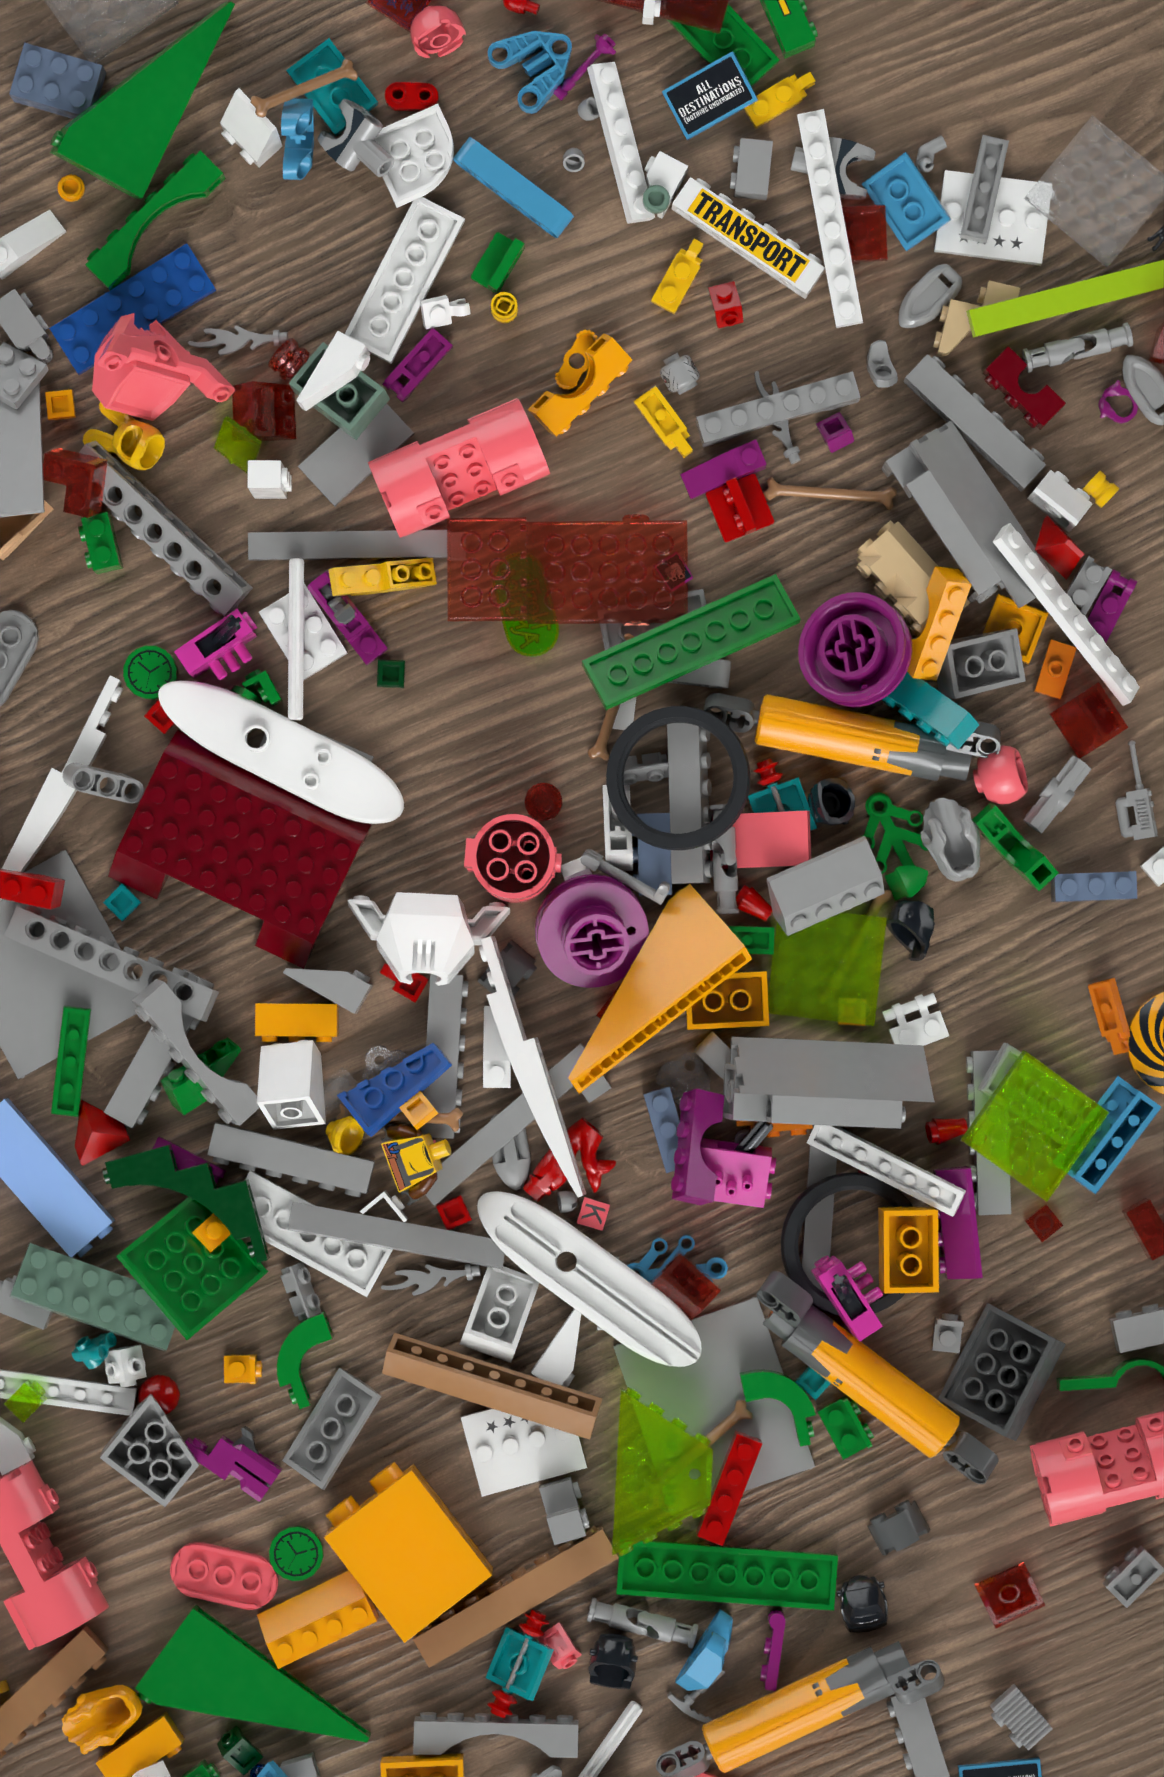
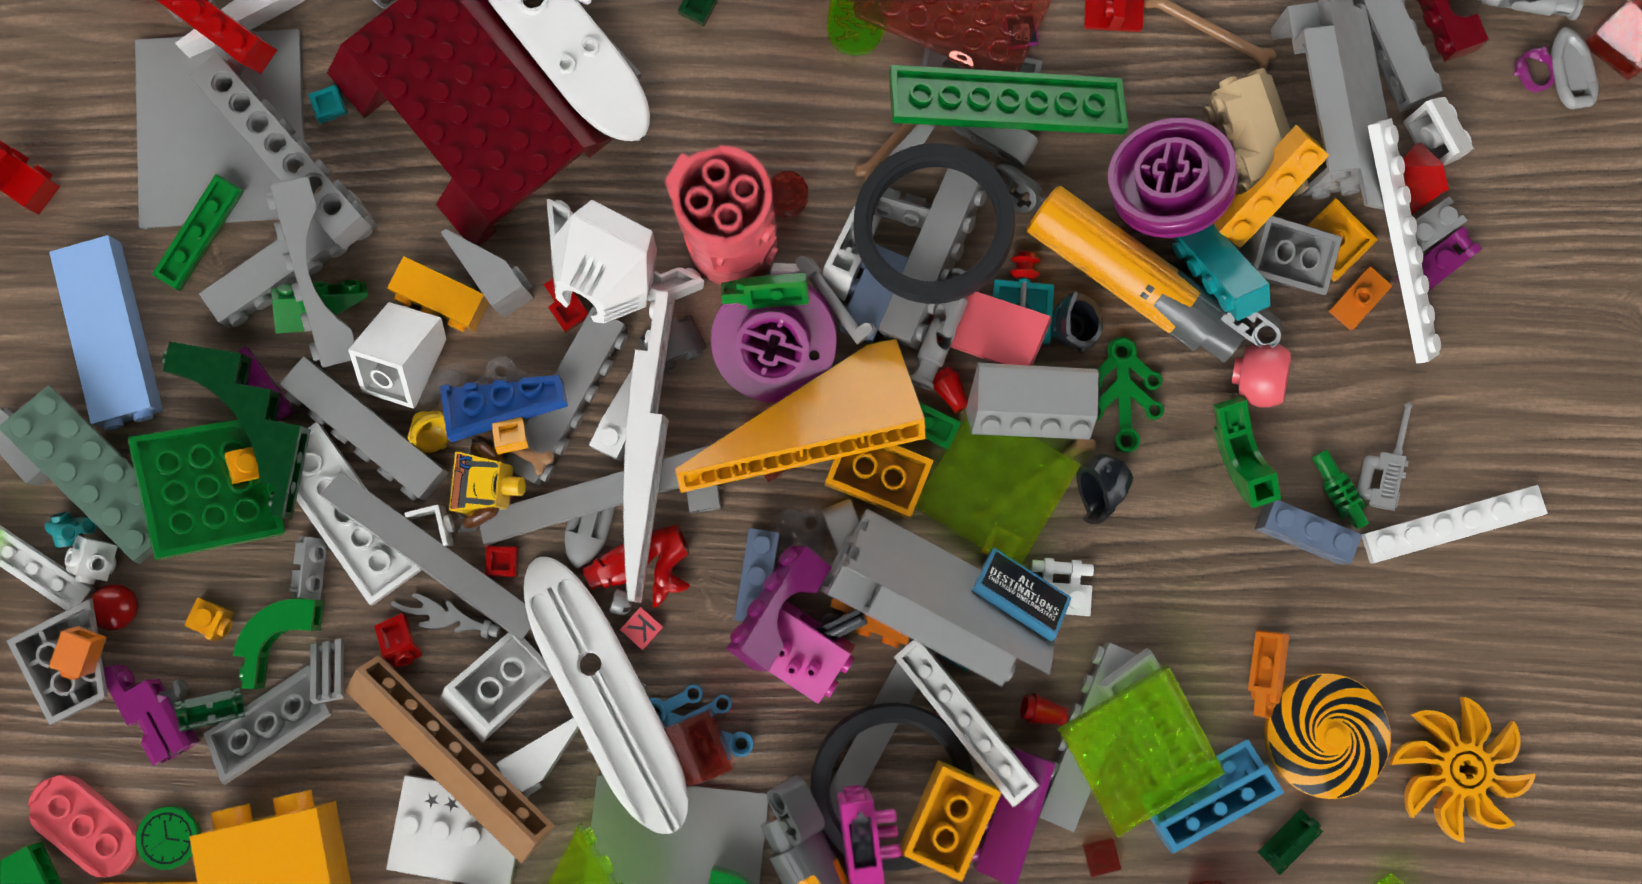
camera: 25 degrees right, 5 degrees down
(97, 1133) = (186, 316): red slope -> none
(165, 1439) = (77, 652): none -> orange brick
(281, 1437) = (209, 709): none -> dark green hinge
(347, 1348) = (315, 671): none -> light grey tile
(402, 1315) = (397, 641): none -> red bracket
(571, 901) = (767, 291): none -> green hinge
(885, 1046) = (1022, 594): none -> tile
(906, 881) = (1117, 436): green tile -> none
(951, 839) = (1184, 416): light grey hair -> none
(1057, 794) = (1309, 422): light grey piece -> none
(1088, 720) = (1376, 361): clear red slope -> none
(1100, 489) = (1485, 142): yellow wheel -> none
(1106, 838) = (1340, 490): none -> green hinge

